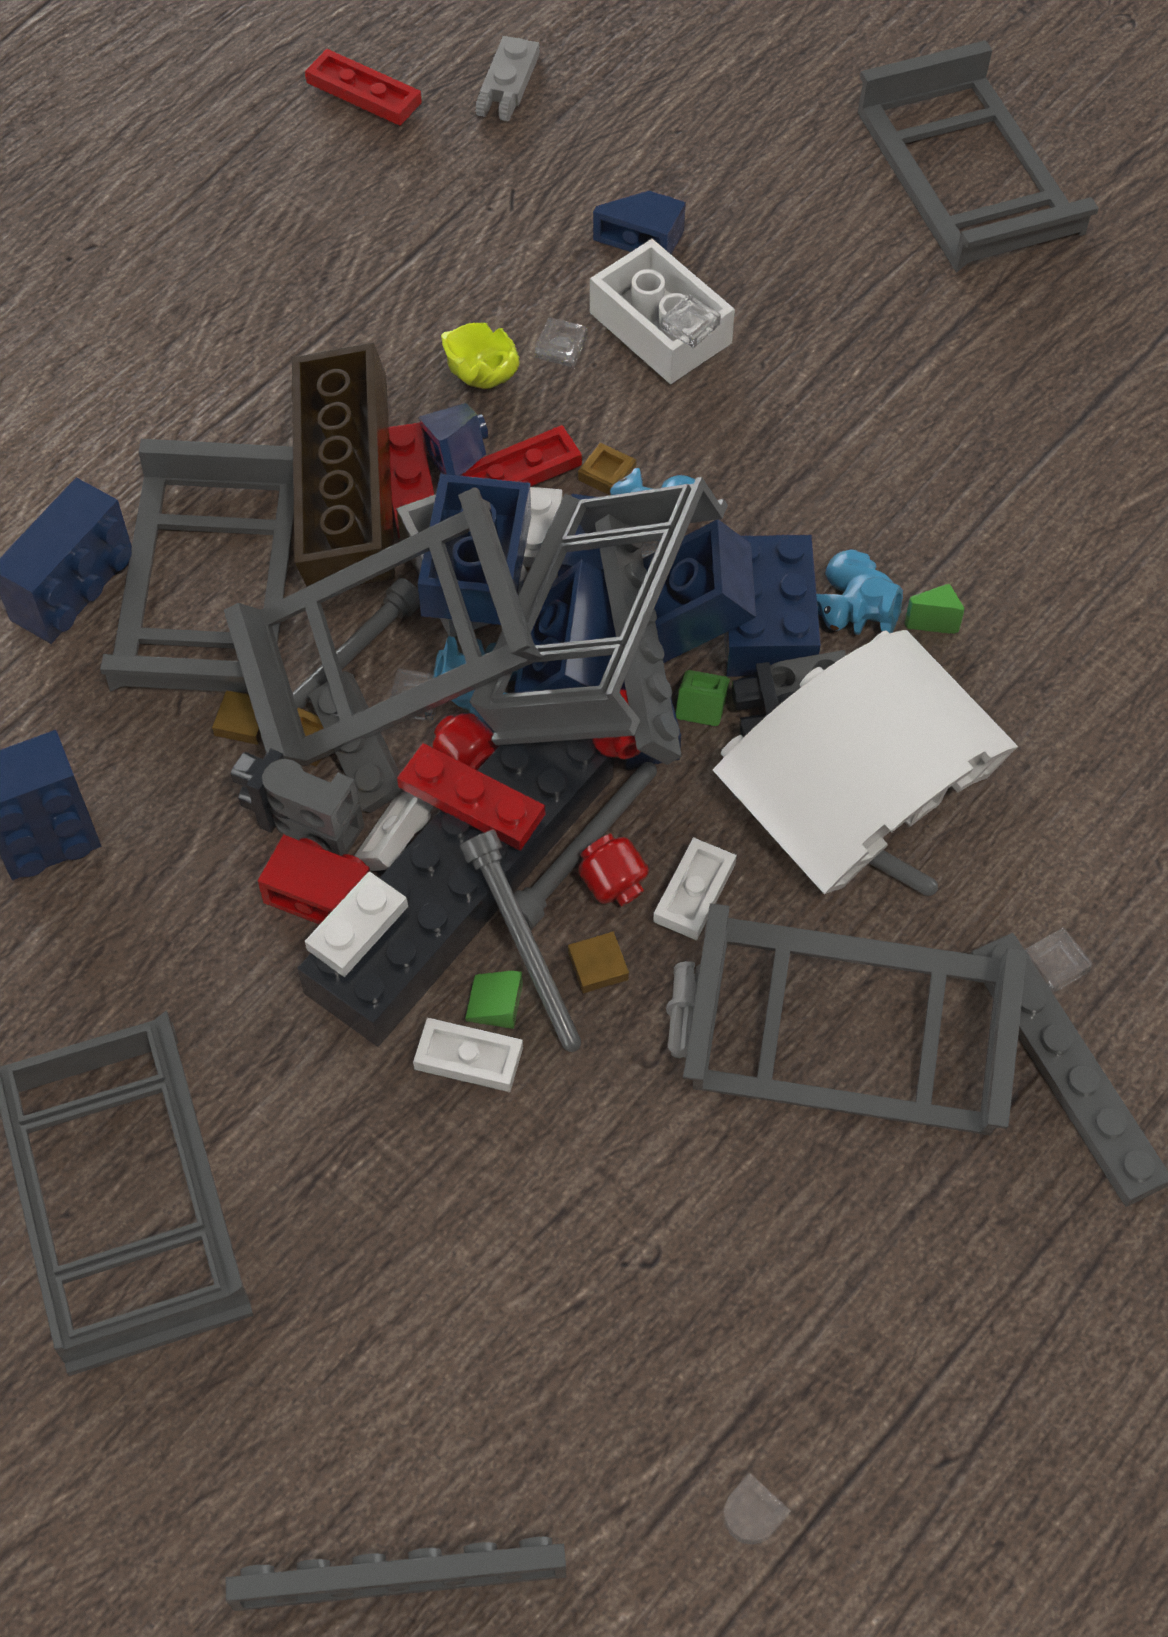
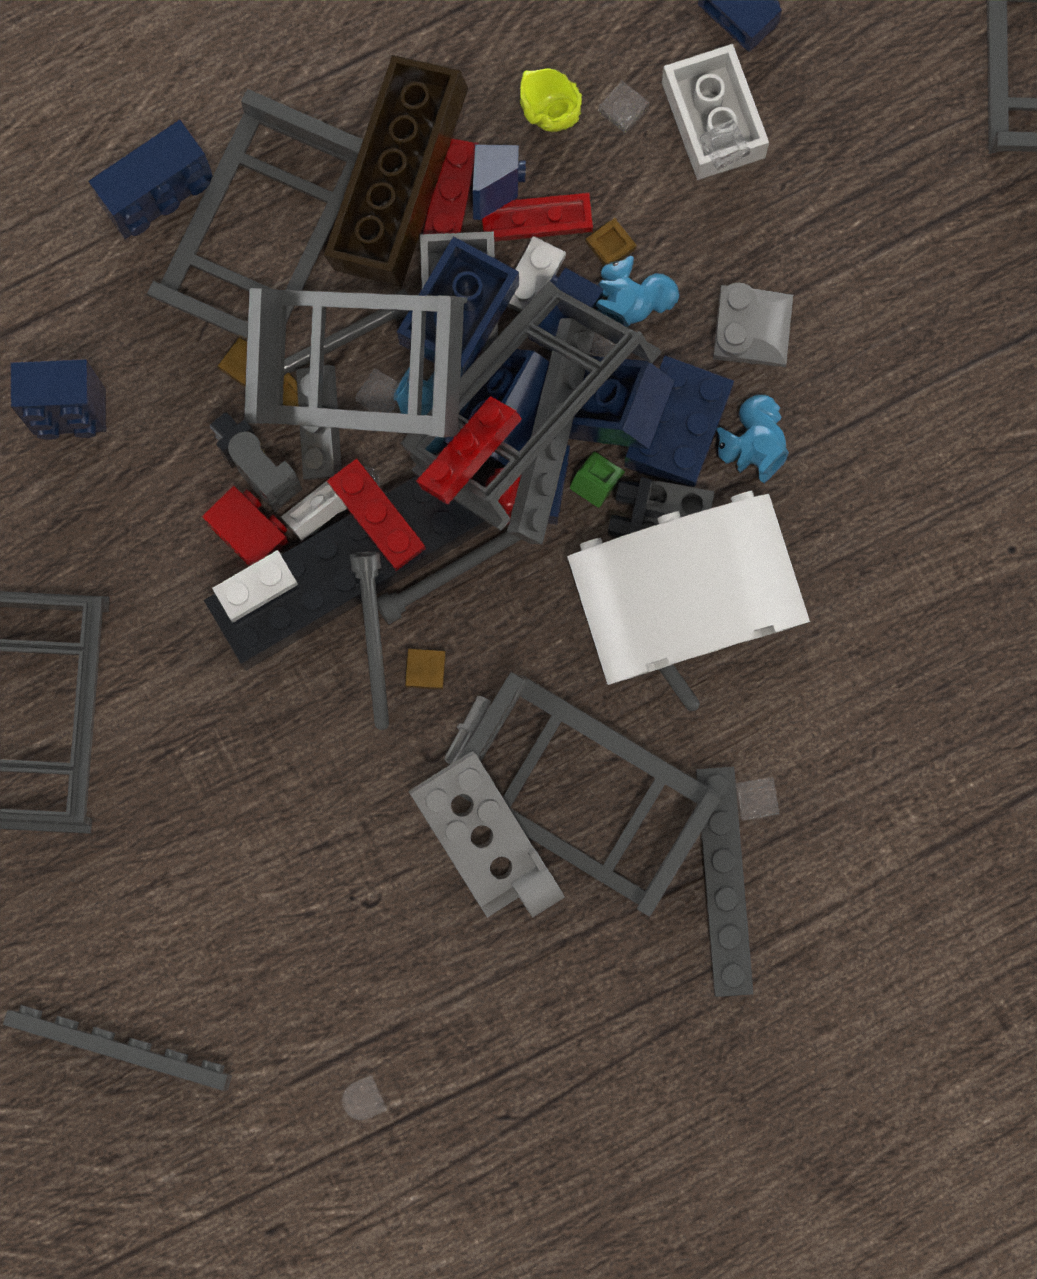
camera: 25 degrees right, 20 degrees up
(465, 739) = (392, 460): red head -> none
(468, 1054) = (304, 705): white plate -> none
(495, 998) = (340, 669): bright green slope -> none
(558, 662) = (469, 450): none -> red plate
(613, 870) = (464, 603): red head -> none
(694, 887) = (518, 639): white plate -> none
(797, 493) = (752, 325): none -> light grey slope
(833, 1142) = (527, 873): none -> light grey hinge
(935, 611) = (806, 477): bright green slope -> none

